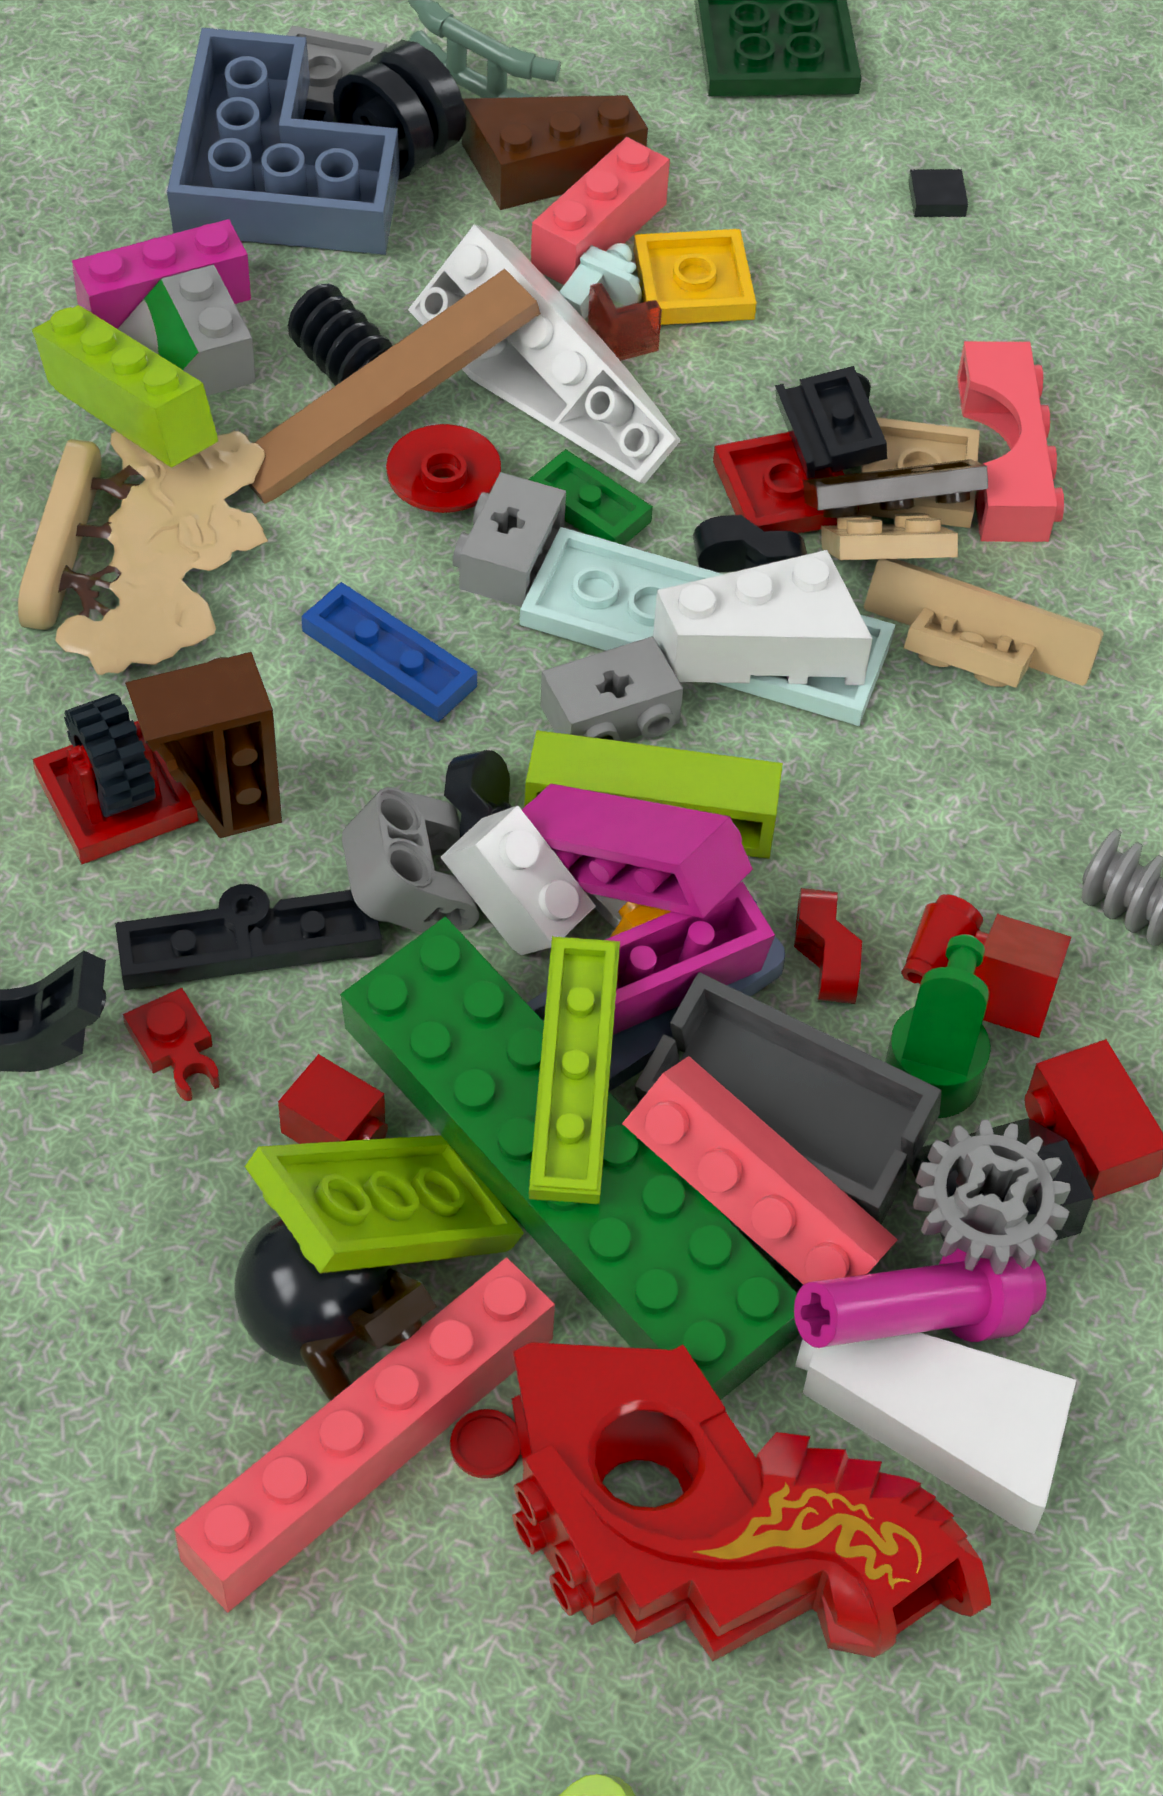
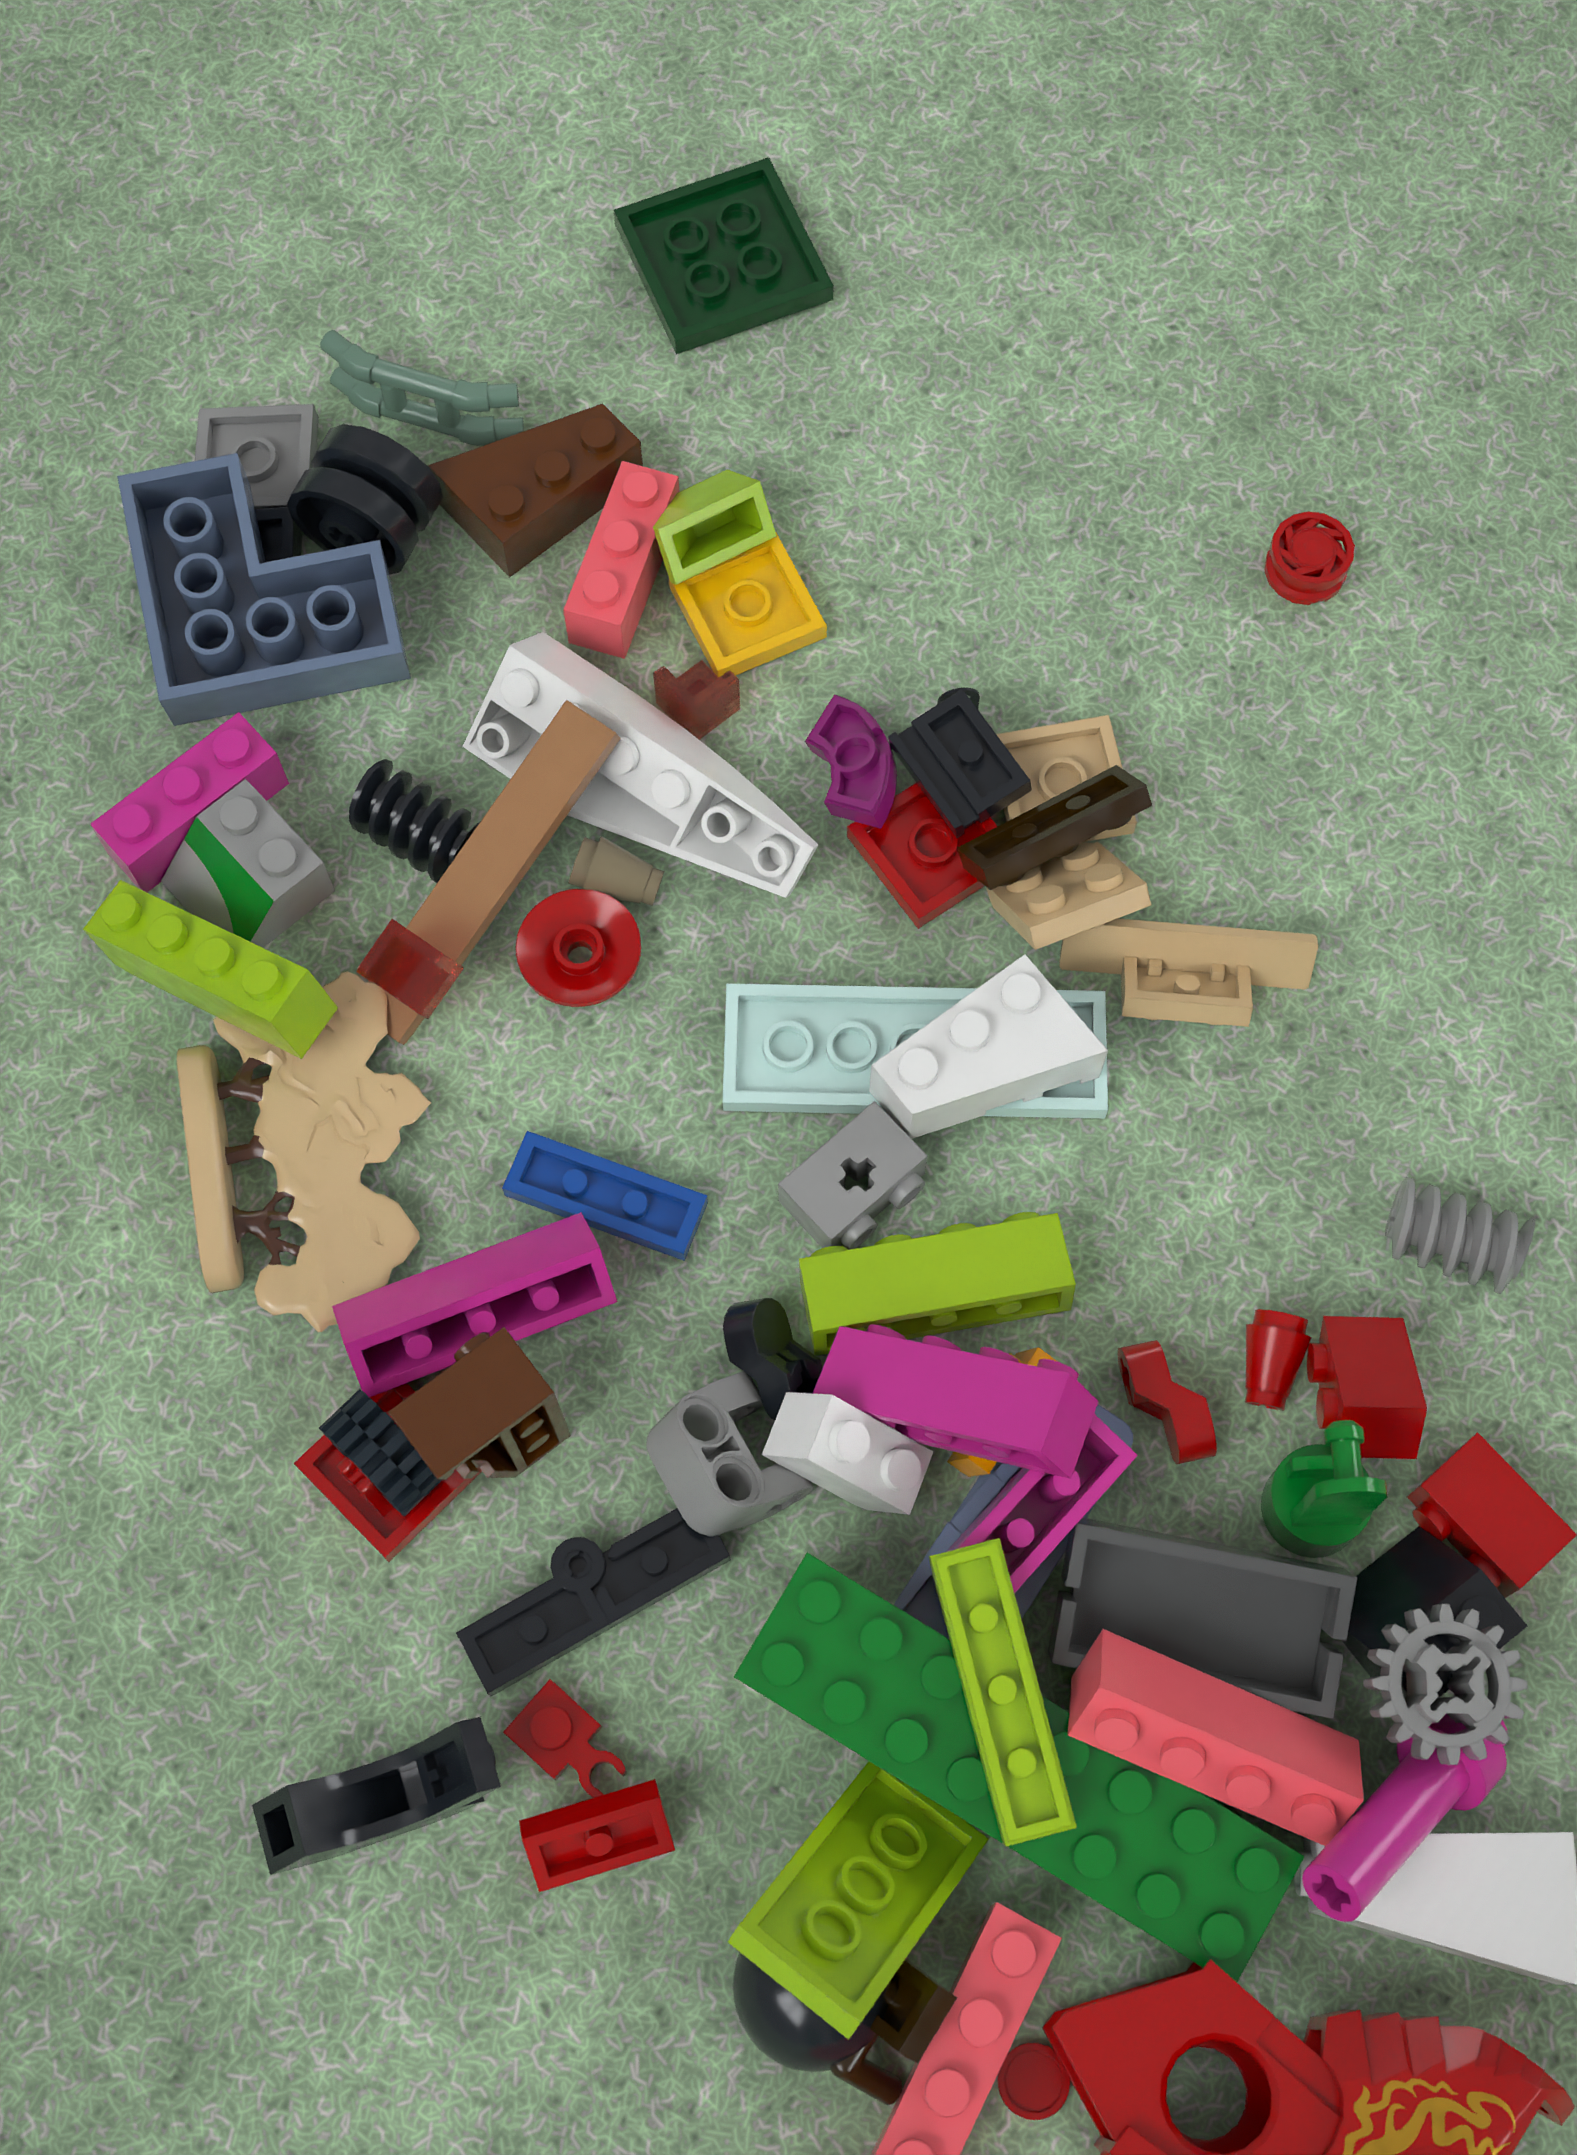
camera: 15 degrees left, 15 degrees up
(170, 1114) = (596, 1835): none -> red plate
(291, 428) = (409, 969): none -> clear red panel
(297, 681) = (515, 1285): none -> dark pink brick
(331, 1106) = (760, 1777): red brick -> none
(500, 425) = (615, 872): none -> dark tan cone
(509, 538) = (685, 1050): light grey brick -> none
(594, 500) = (741, 934): green plate -> none
(610, 268) = (654, 637): light aqua piece -> none
(684, 203) = (712, 524): none -> lime slope
(737, 544) = (915, 942): black piece -> none
(742, 402) = (859, 762): none -> magenta tile
(938, 193) = (959, 408): black tile -> none
(1004, 392) = (1114, 654): coral arch -> none

